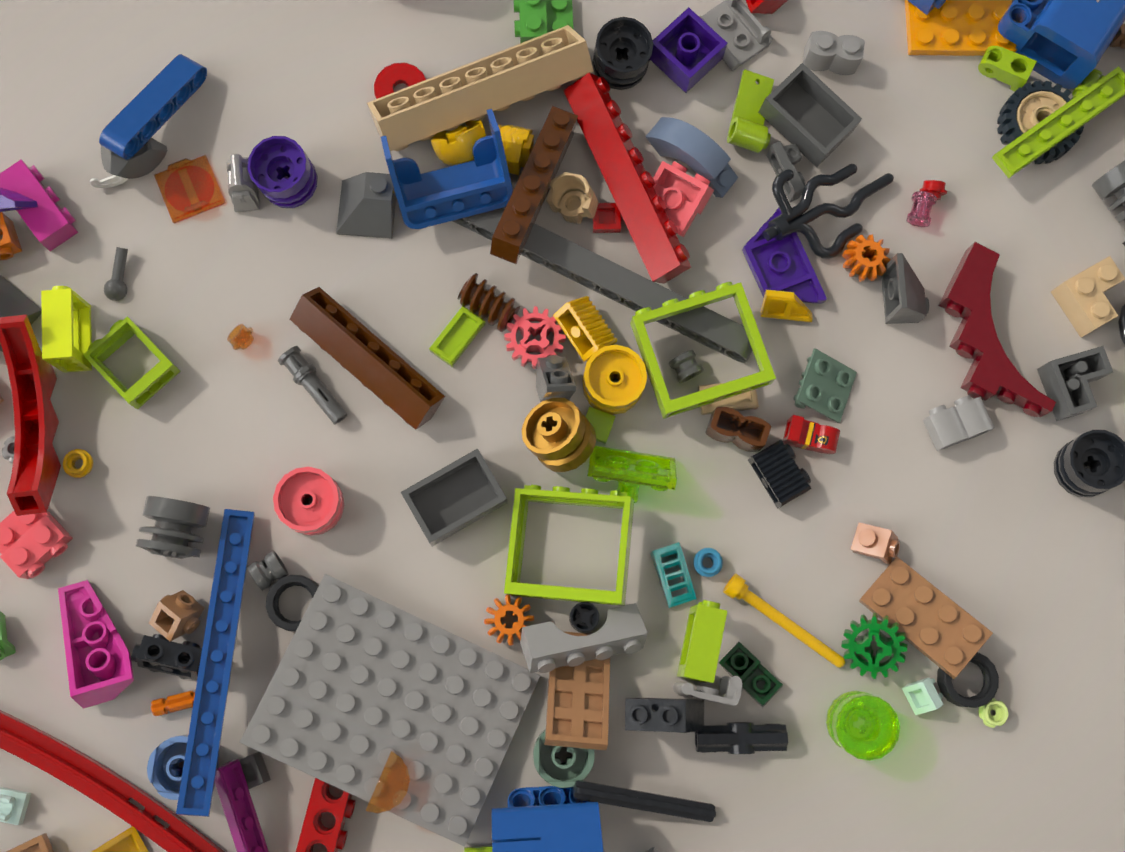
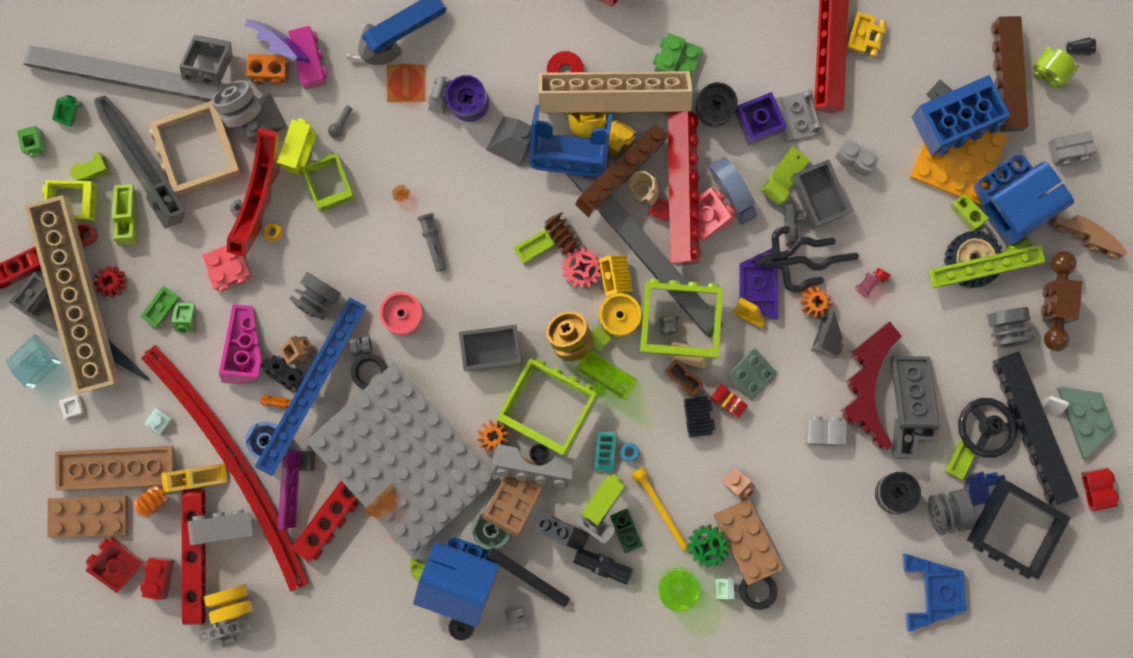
camera: 30 degrees right, 5 degrees up
(366, 357) = (472, 238): reddish brown brick -> none
(554, 378) = (582, 299): dark grey slope -> none
(1000, 716) = (765, 622): yellowish green plate -> none
(1051, 321) = (914, 392): none -> dark grey tile
(1084, 297) = (946, 385): tan brick -> none

